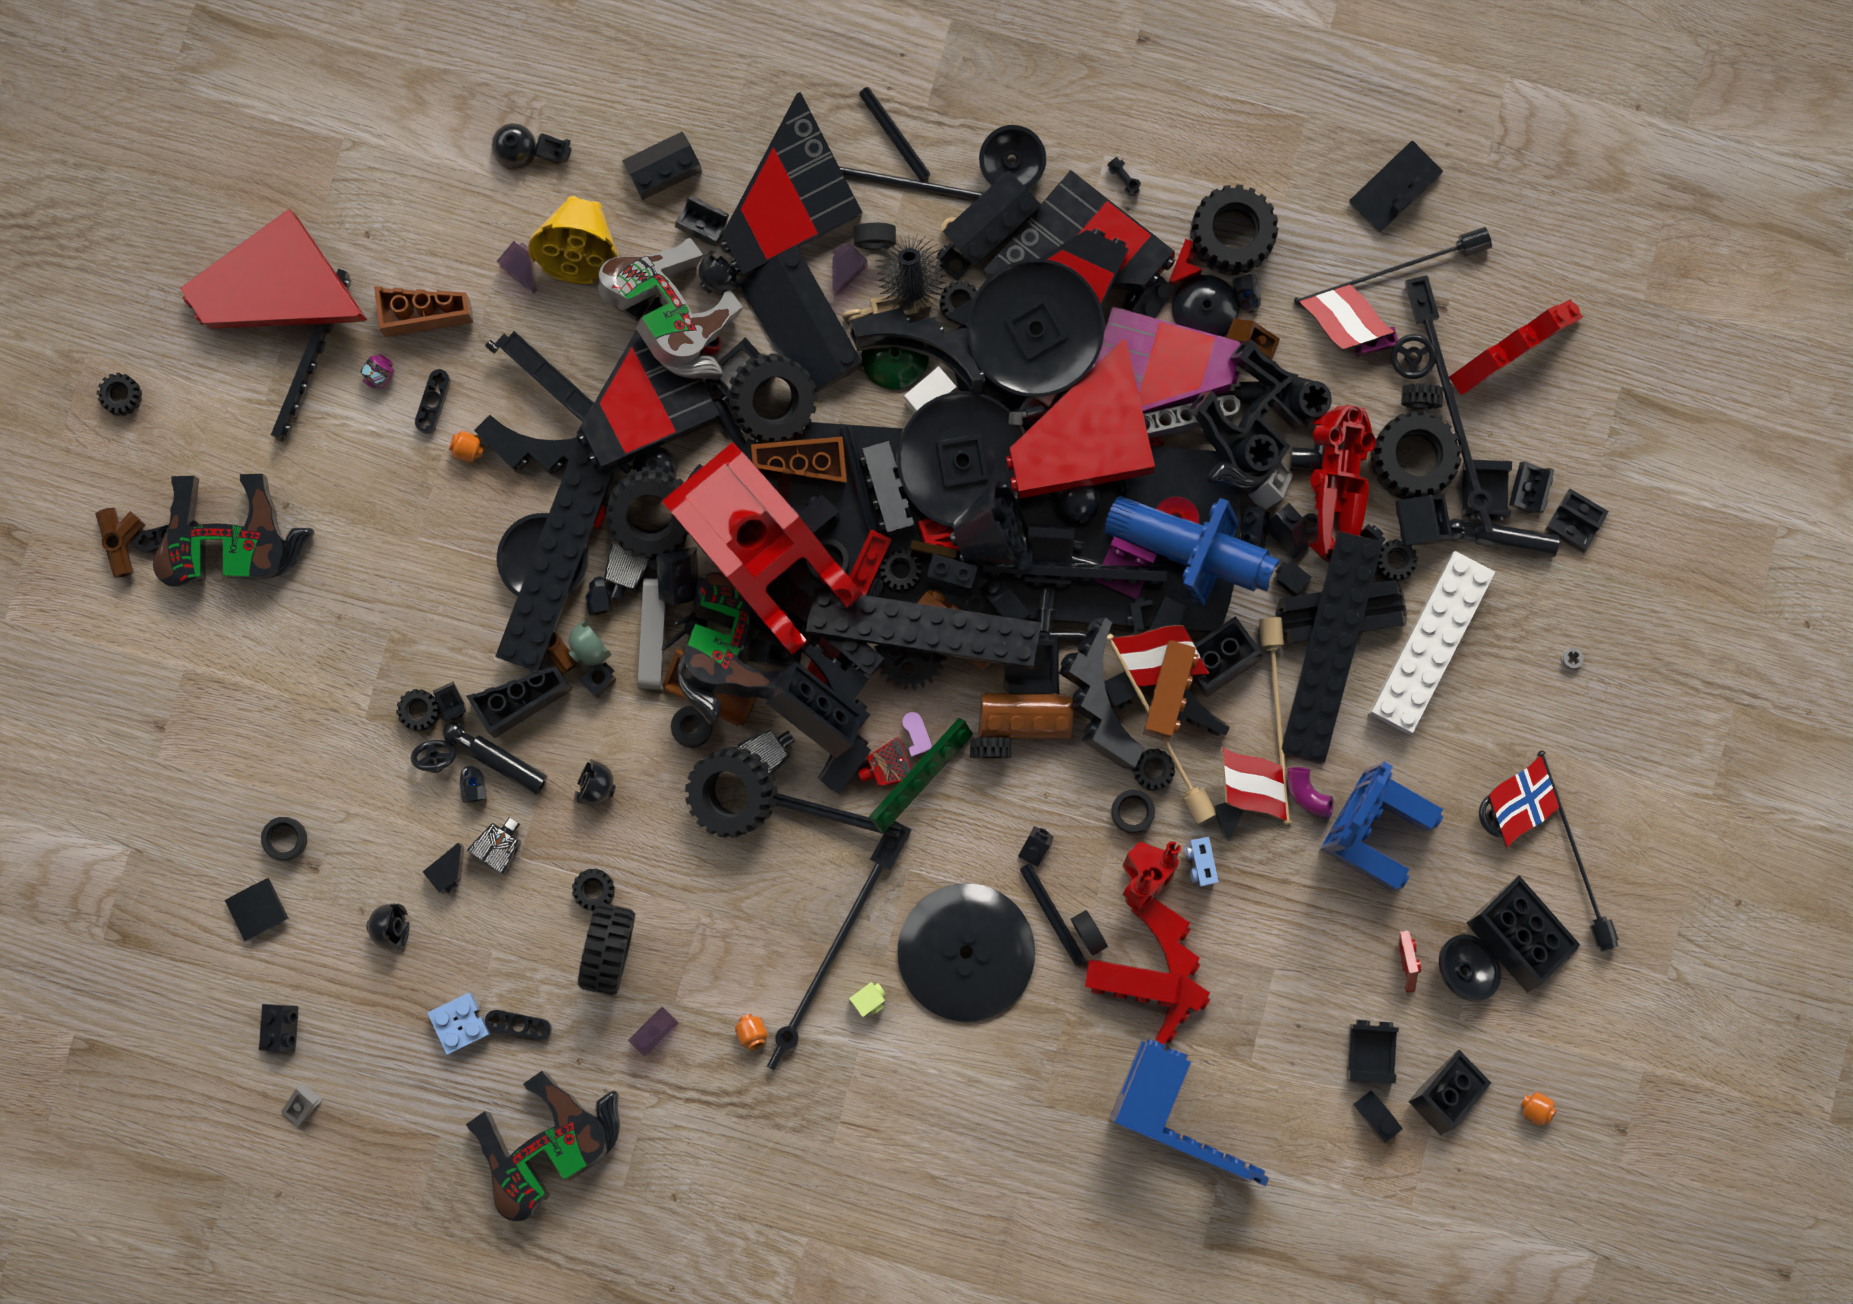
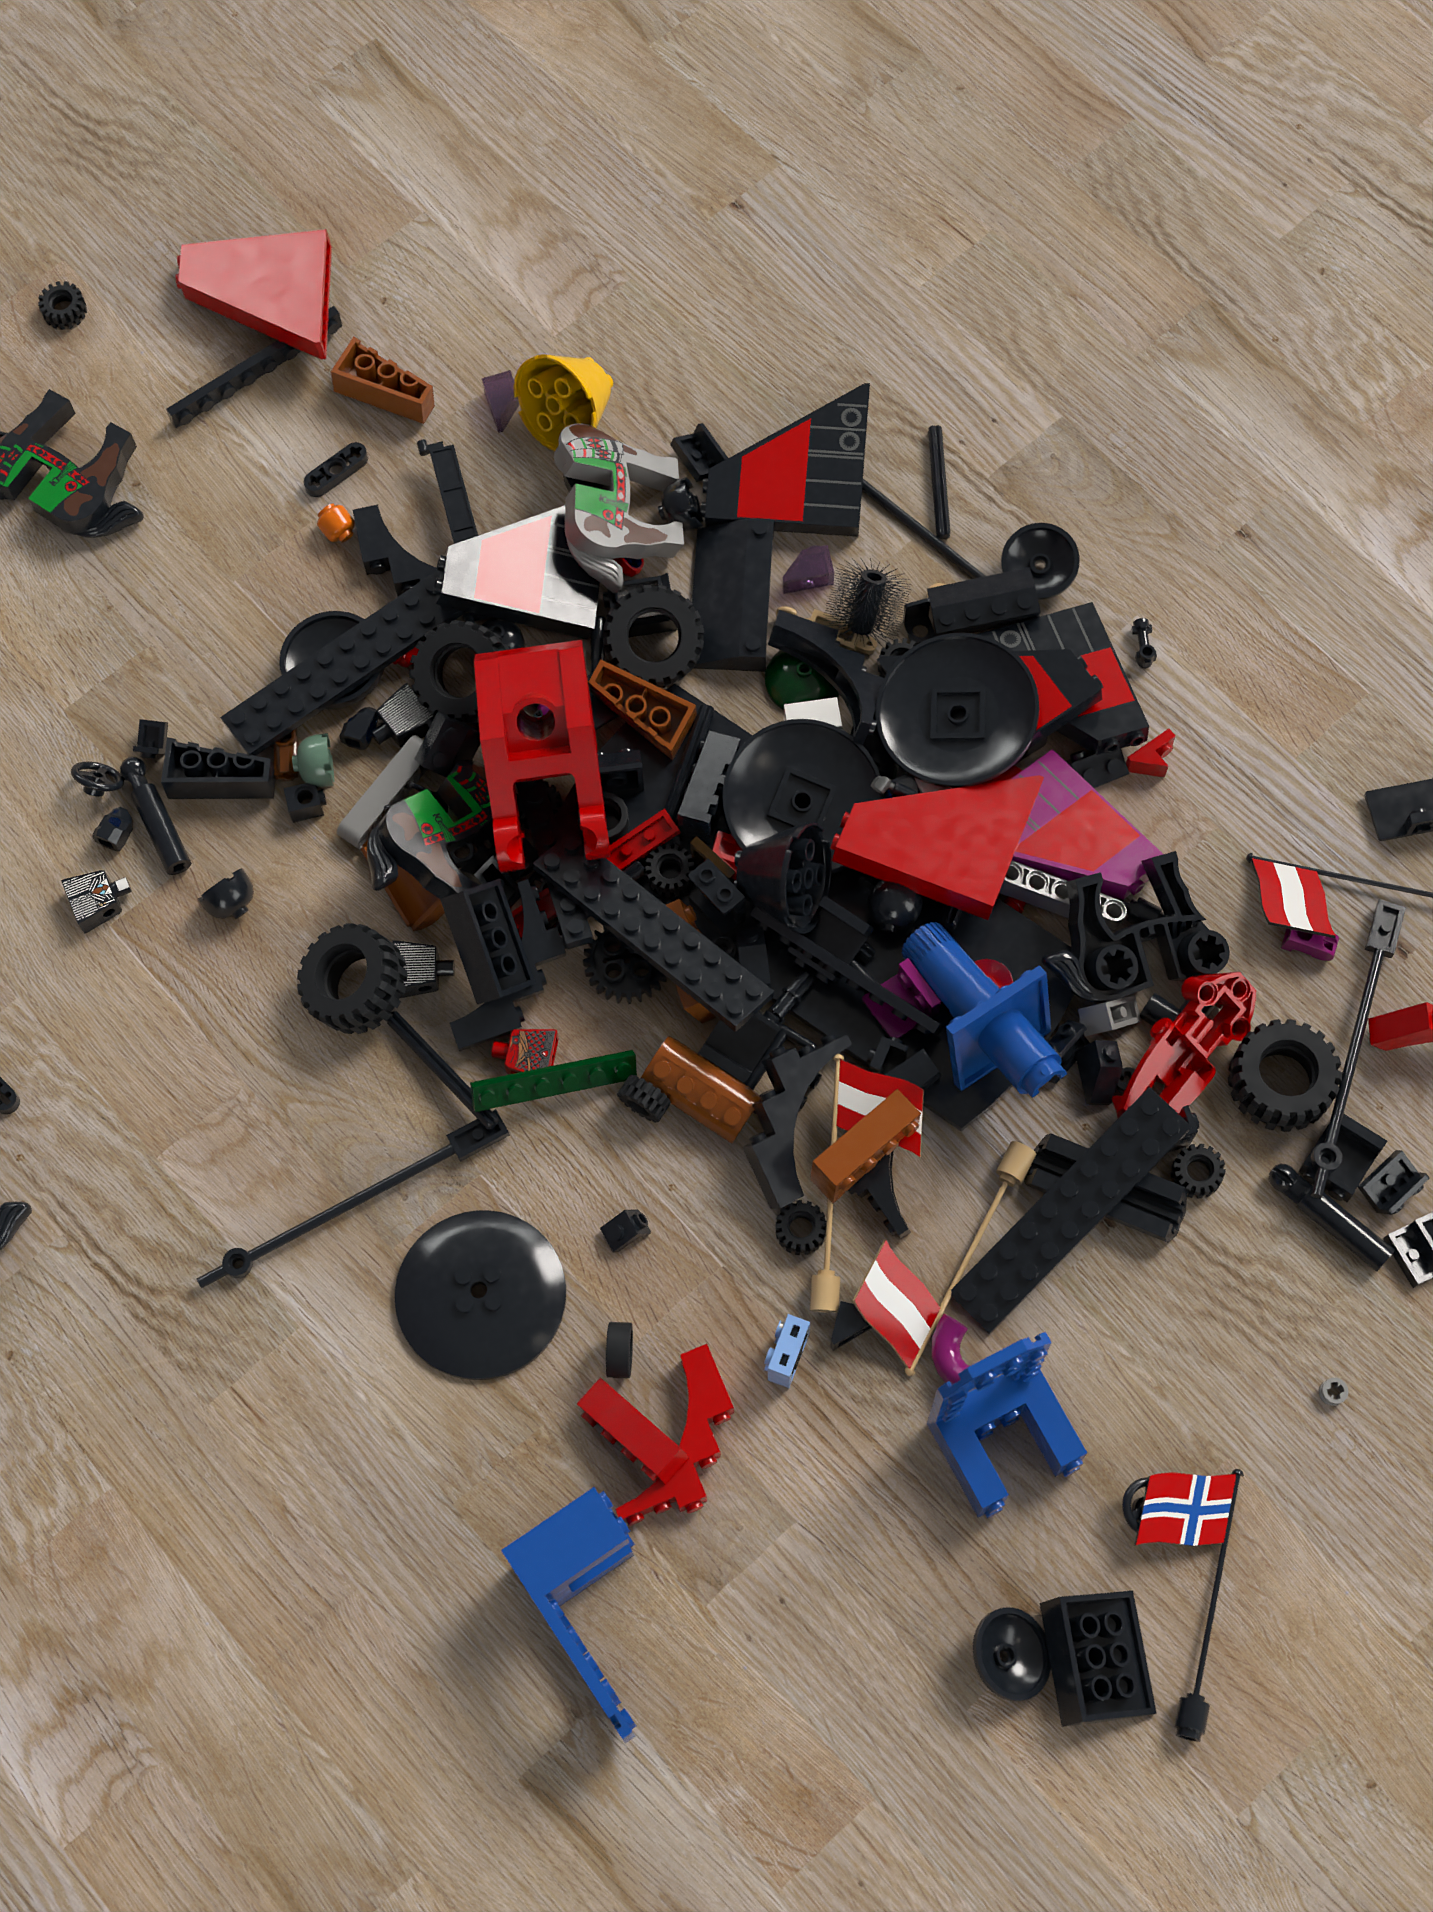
camera: 35 degrees right, 15 degrees down
(377, 371) = (304, 413): head -> none
(404, 710) = (112, 716): black tyre -> none
(446, 870) = (31, 890): black slope -> none
(513, 146) = (571, 297): black cylinder -> none
(552, 149) = (603, 317): black bracket -> none
(587, 876) = (158, 1011): black tyre -> none
(606, 949) = (118, 1050): black tyre -> none
(653, 1031) = (109, 1171): clear purple slope -> none
(662, 165) = (696, 390): black slope -> none
(679, 732) = (367, 914): black tyre -> none
(751, 1032) = (205, 1233): orange head -> none
(869, 999) = (346, 1276): yellowish green brick -> none
(874, 235) = (853, 546): black tyre -> none
(915, 727) = (581, 1040): lavender leg -> none
(1052, 914) = (595, 1312): black axle -> none
(1120, 691) = (817, 1125): black slope -> none
(1149, 872) = (724, 1326): red piece -> none
(1150, 814) = (764, 1239): black tyre -> none
(1189, 308) = (1158, 823): black dish -> none
(1225, 655) = (950, 1156): black slope -> none
(1239, 201) = (1229, 718): black tyre -> none
(1247, 293) = (1202, 818): black rock -> none
(1248, 330) = (1188, 861): reddish brown slope -> none
(1291, 577) = (1073, 1121): black brick -> none
(1372, 1052) = (845, 1681): black panel -> none
(1377, 1117) = (805, 1758): black slope -> none
(1409, 964) = (948, 1608): red wing -> none
(1412, 374) = (1330, 994): black piece -> none
(1422, 396) = (1328, 1018): black tyre -> none
(1423, 520) = (1252, 1144): black slope -> none
(1431, 642) = (1184, 1278): white brick -> none
(1450, 1093) = (904, 1784): black slope -> none
(1538, 1109) = (994, 1870): orange head -> none

